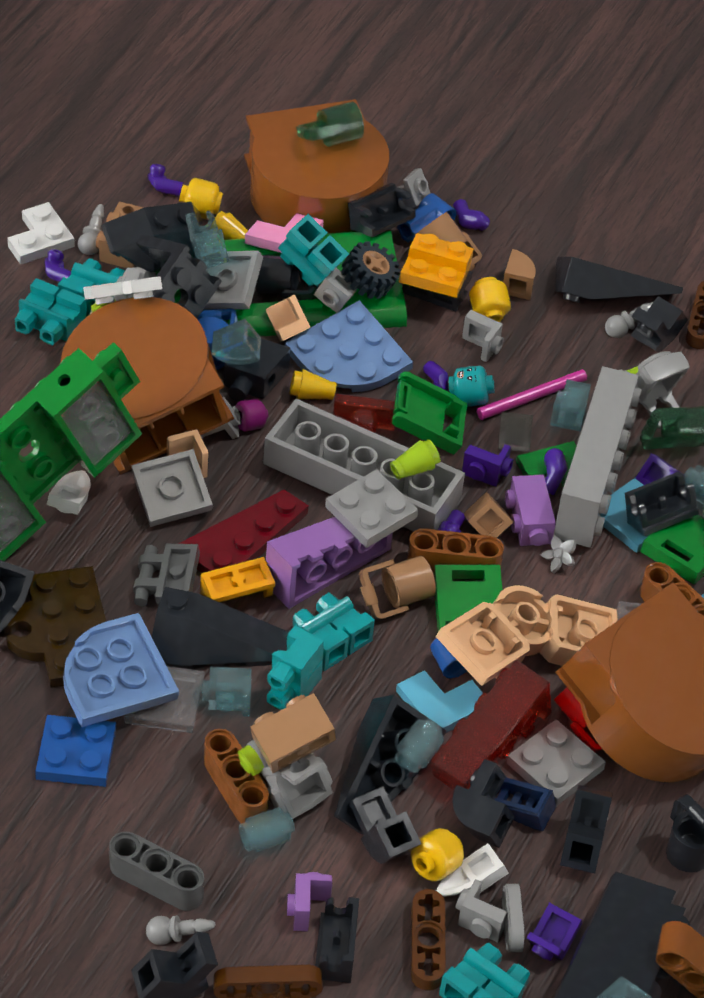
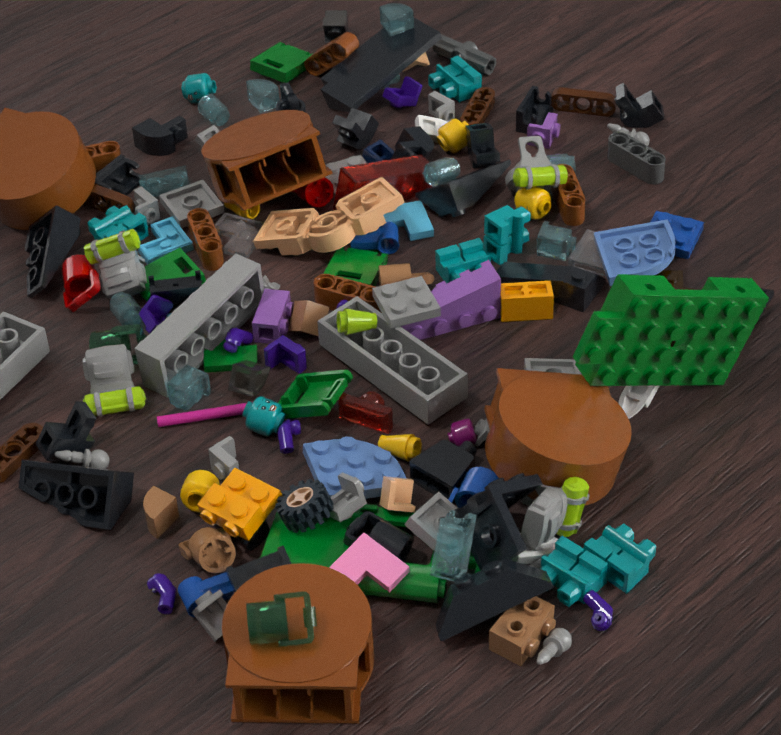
camera: 155 degrees left, 5 degrees down
(44, 234) = (602, 655): white plate -> none
(133, 288) = (551, 471): white plate -> none
(161, 182) = (462, 696): dark purple arm -> none
(176, 568) = (569, 316): dark grey plate -> none
(203, 195) = (429, 653): yellow head -> none
(230, 226) = (413, 617): yellow cone -> none
(237, 344) = (460, 455): clear light blue brick -> none
(247, 532) = (505, 345): dark red wing -> none
(292, 732) = (532, 148): medium nougat brick -> none
(312, 259) = (359, 495): teal hips -> none
(514, 920) = (421, 105): light grey tile -> none

